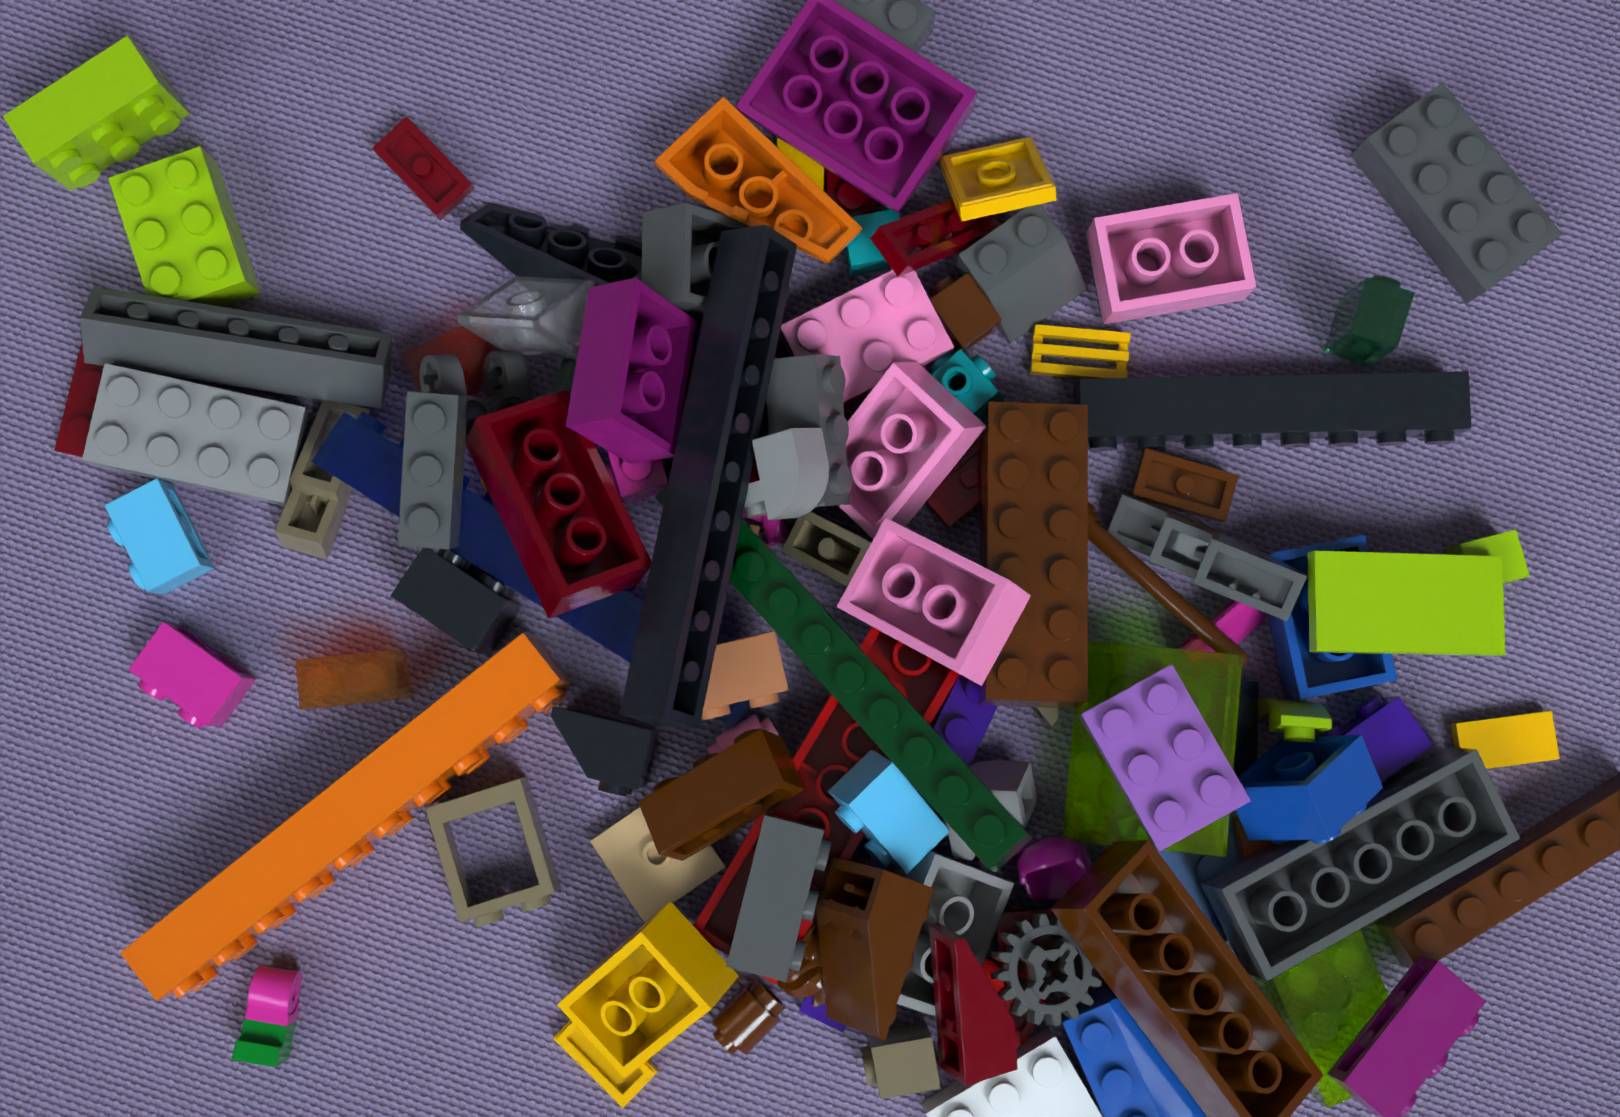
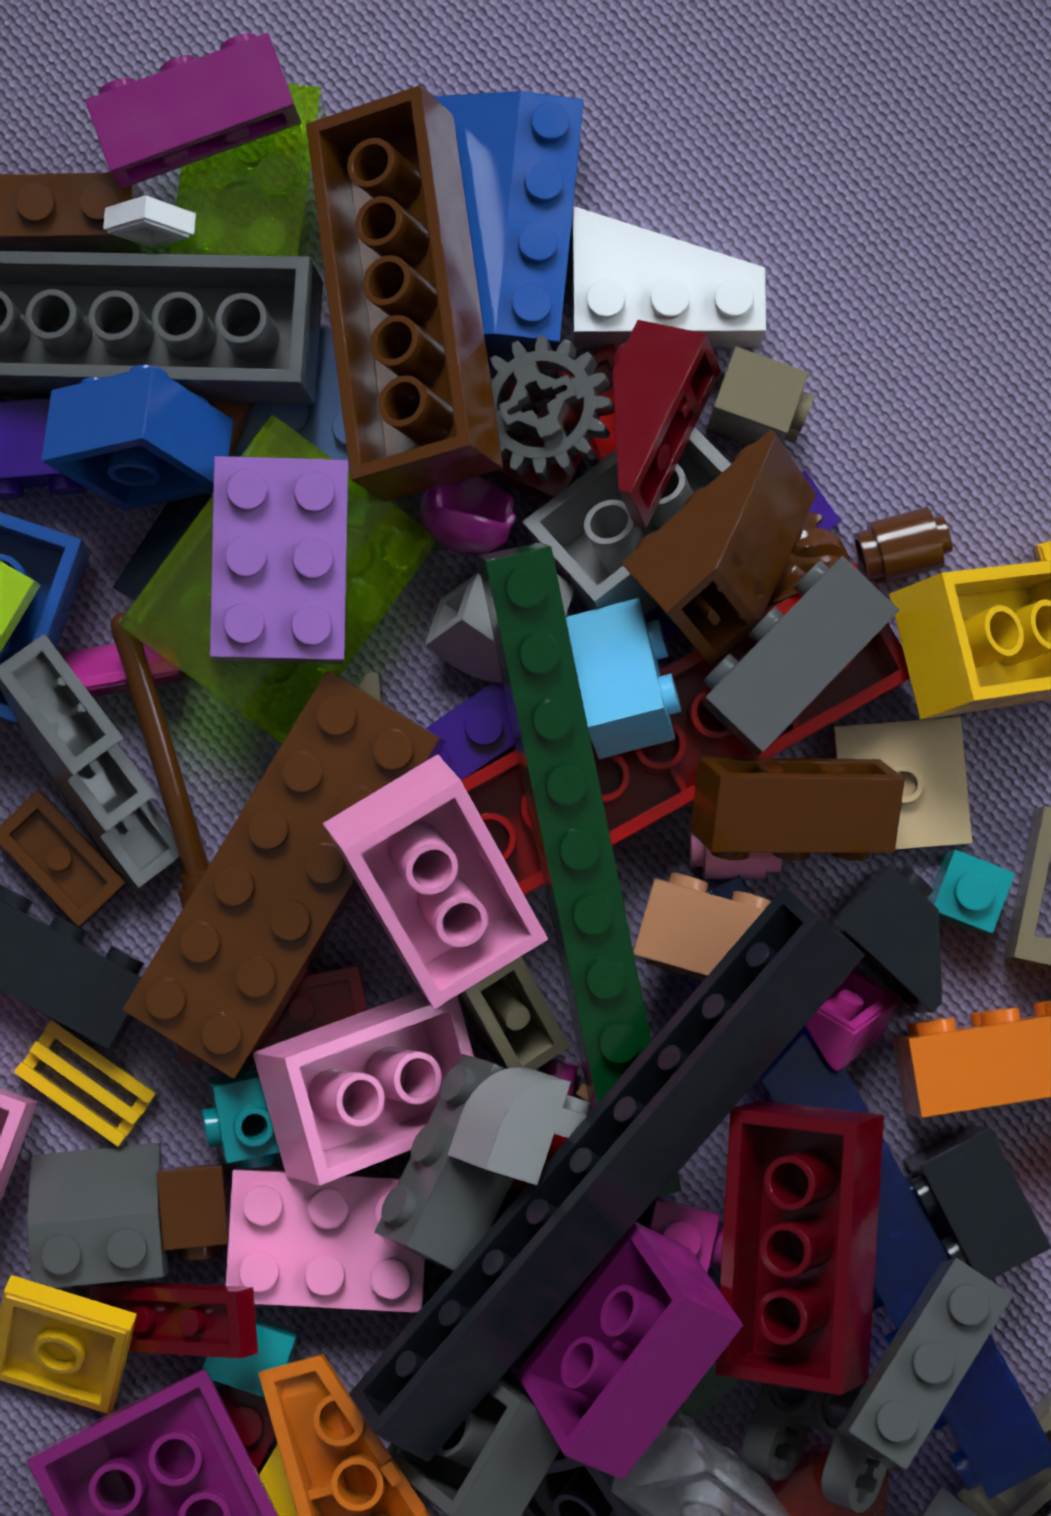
camera: 155 degrees left, 0 degrees up
(573, 805) = (970, 892): none -> teal brick
(604, 674) = (852, 1019): none -> dark pink slope
(1295, 718) = (98, 522): lime slope -> none
(1388, 943) = (149, 221): none -> white tile

